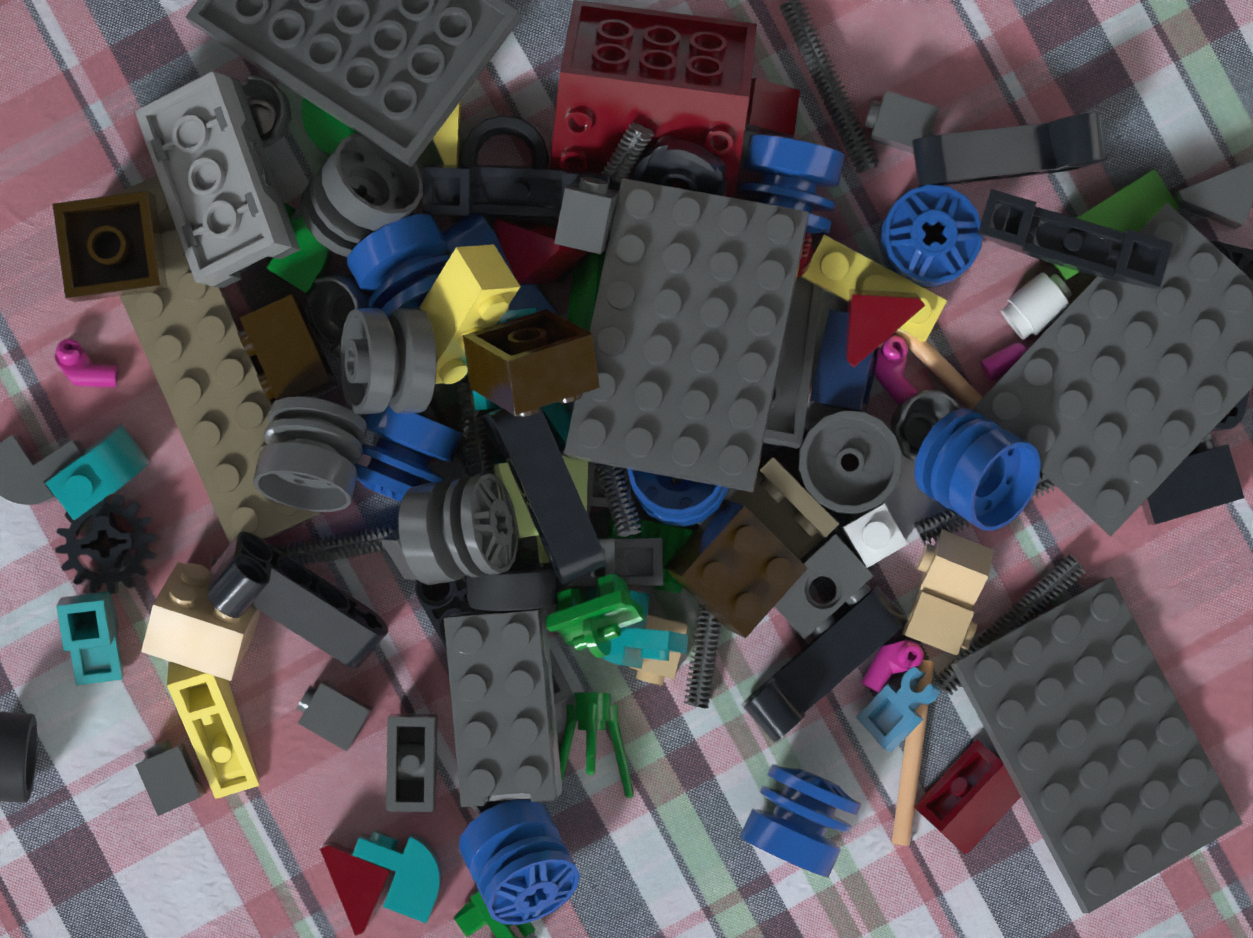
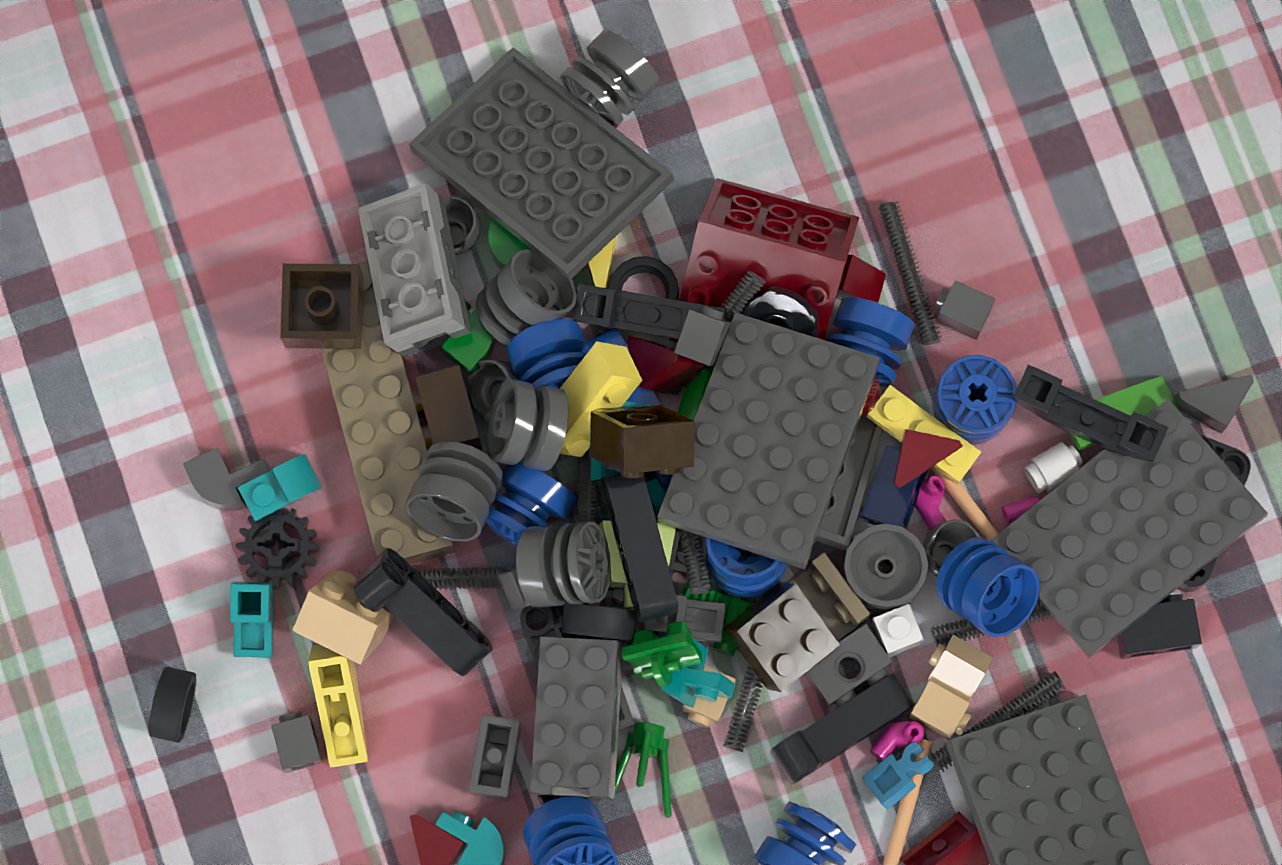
camera: 10 degrees right, 10 degrees down
(80, 368) = (279, 406): dark pink arm -> none
(333, 714) = (437, 711): dark grey brick -> none
(1010, 151) = (1048, 342): black beam -> none

